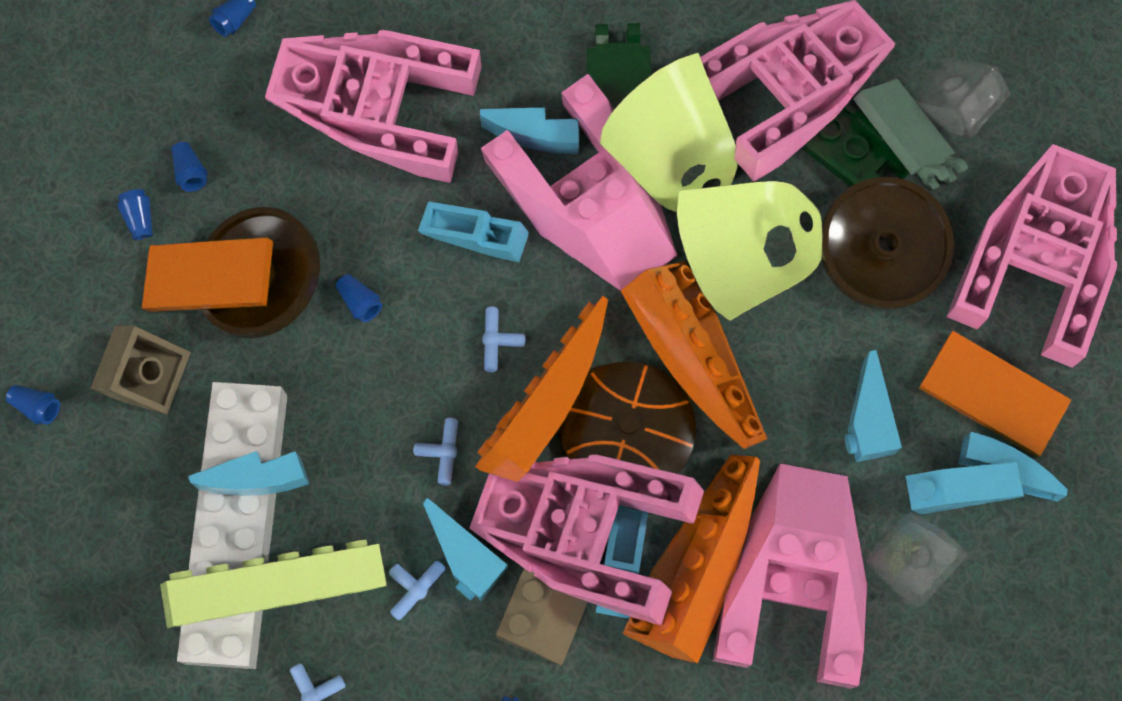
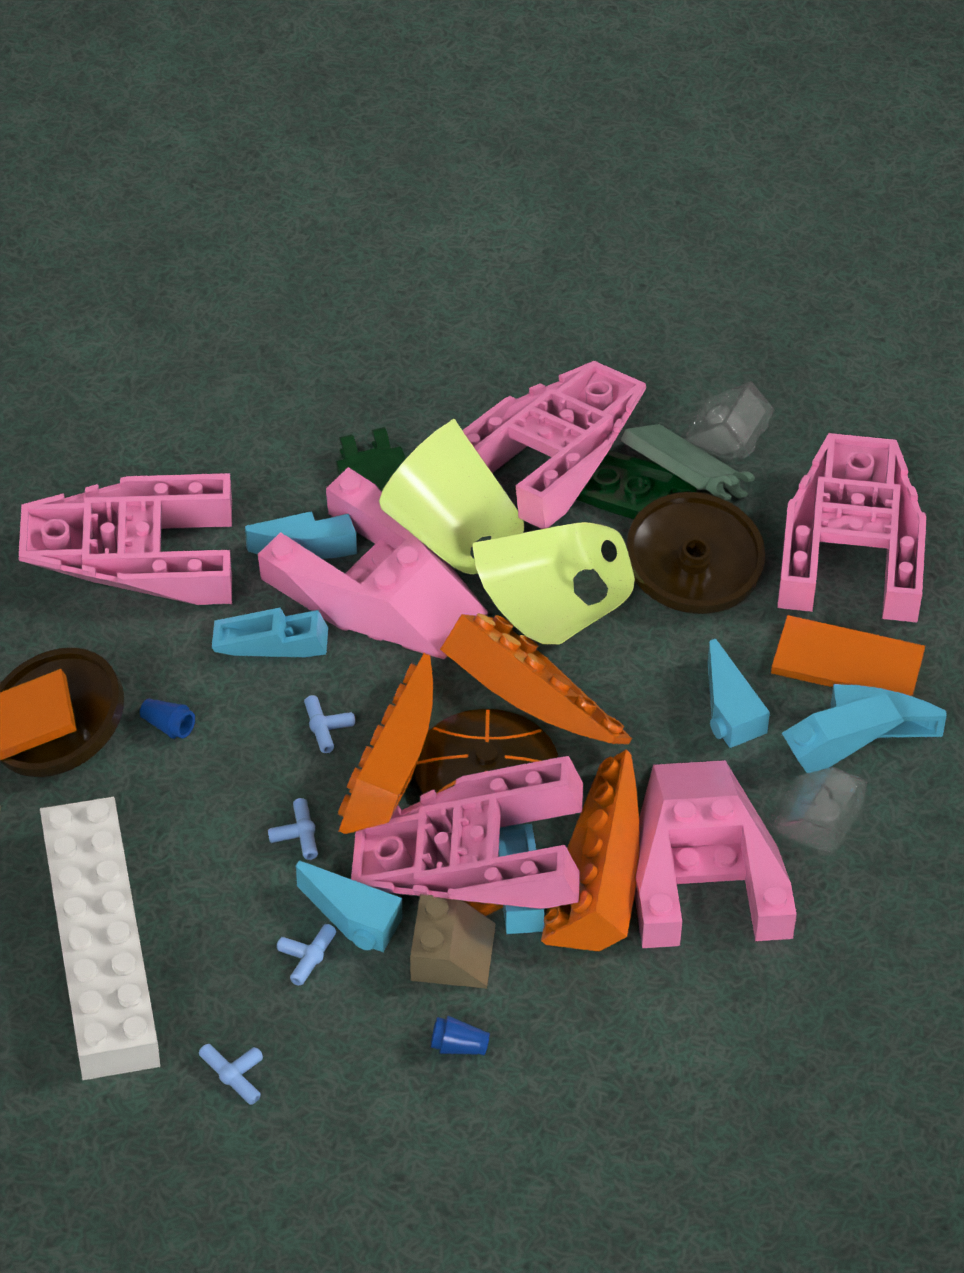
camera: 15 degrees left, 25 degrees down
(253, 476) = (111, 866): medium azure slope -> none
(271, 585) = (162, 957): yellowish green brick -> none

